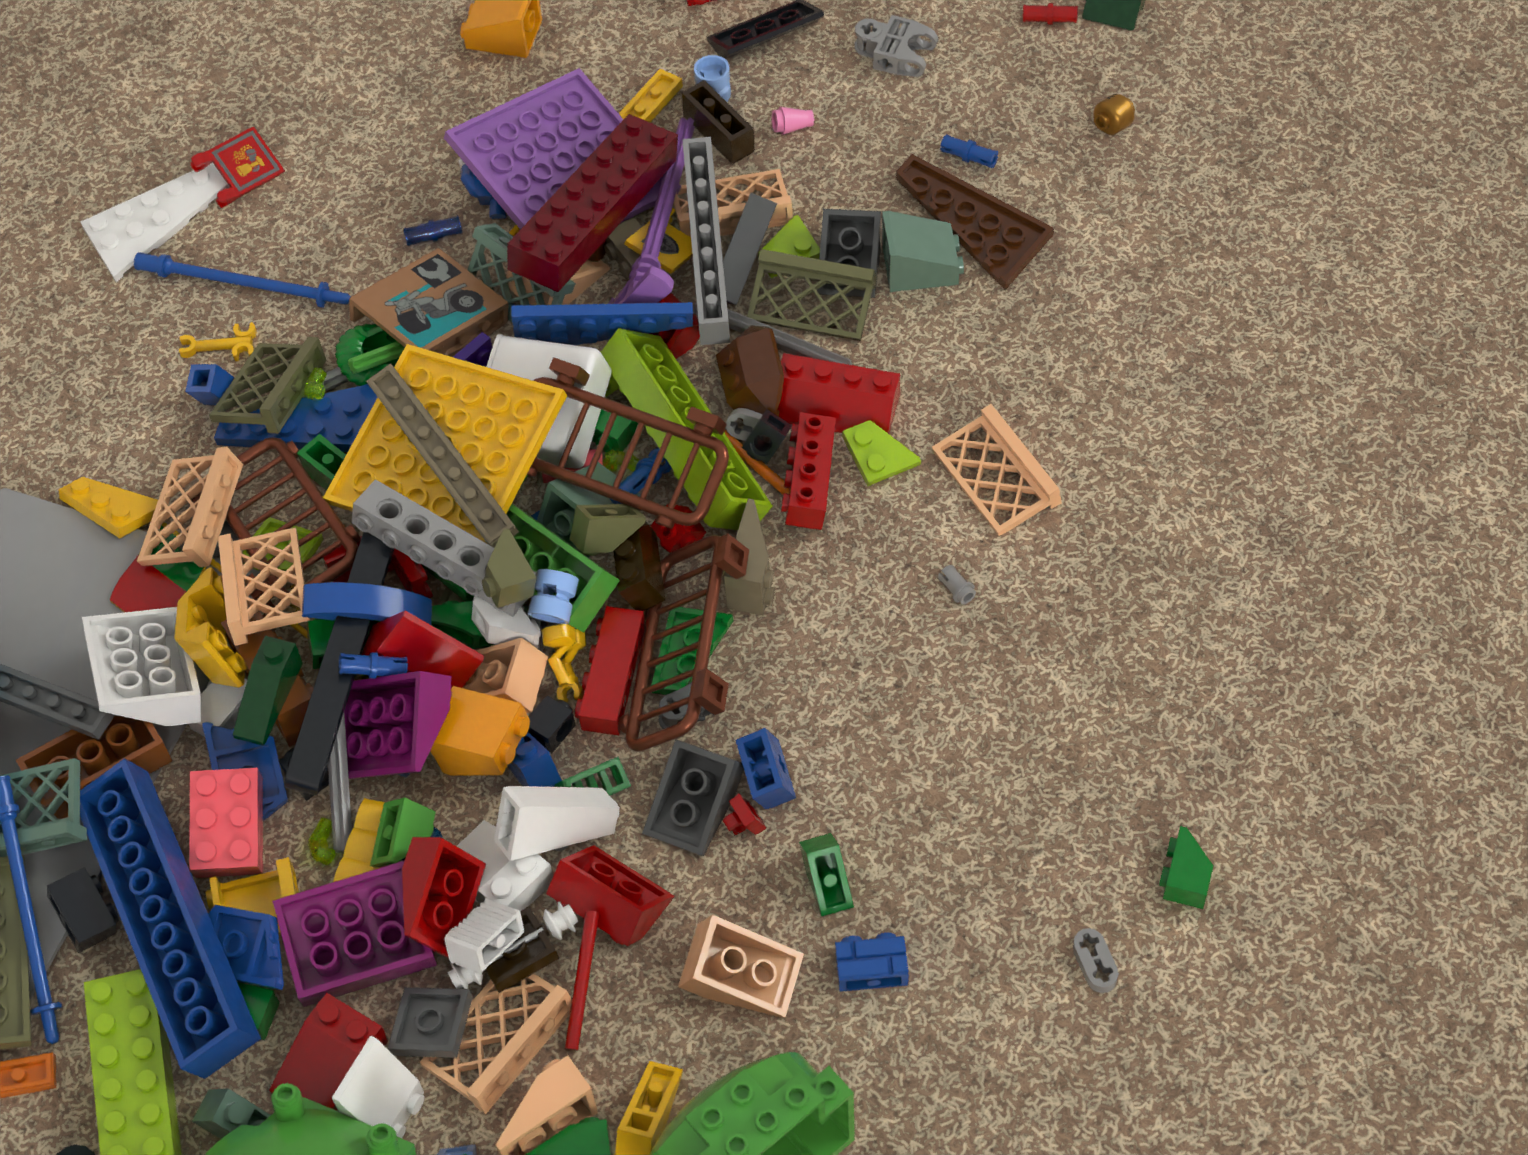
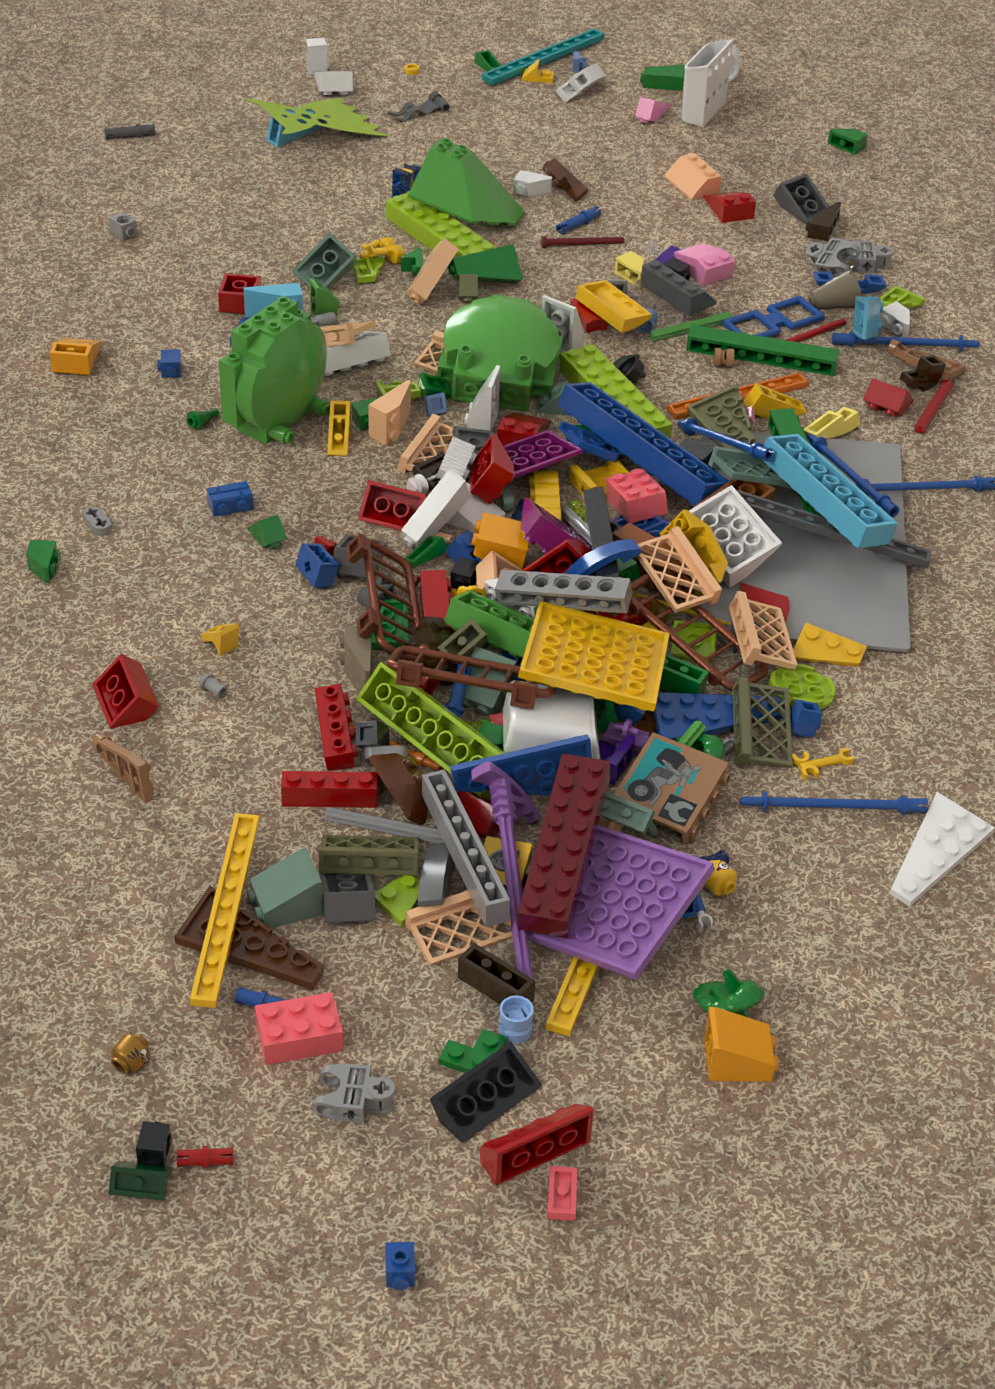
camera: 160 degrees right, 15 degrees down
(177, 436) = (804, 685): none -> lime tile
(242, 162) = (895, 887): red flag -> none
(267, 689) = (640, 523): dark green slope -> none
(314, 385) = (727, 723): clear neon green arm -> none
(371, 665) = (582, 533): blue pin -> none
(398, 824) = (525, 488): bright green slope -> none
(427, 201) = (722, 879): none -> yellow head
(441, 455) = (595, 641): dark tan tile -> none
(485, 73) = (731, 995): none -> green piece
(508, 573) = (509, 567): olive slope -> none
(547, 606) = (479, 583): light blue wheel -> none
(581, 981) = (395, 469): red bar -> none
(740, 968) = (308, 487): light nougat slope -> none
(763, 65) = (465, 1058): none -> green plate
(789, 119) = (433, 1004): bright pink cone -> none
(877, 452) = (288, 754): lime wing -> none
(932, 655) = (224, 637): none -> yellow slope
(936, 107) = (298, 1028): none -> coral brick
(990, 242) = (224, 911): none -> yellow plate
(1021, 462) = (184, 766): light nougat fence -> none
(1075, 431) = (118, 758): none -> medium nougat plate
(1078, 582) = (125, 693): none -> red slope
(1098, 27) = (153, 1143): none -> black brick

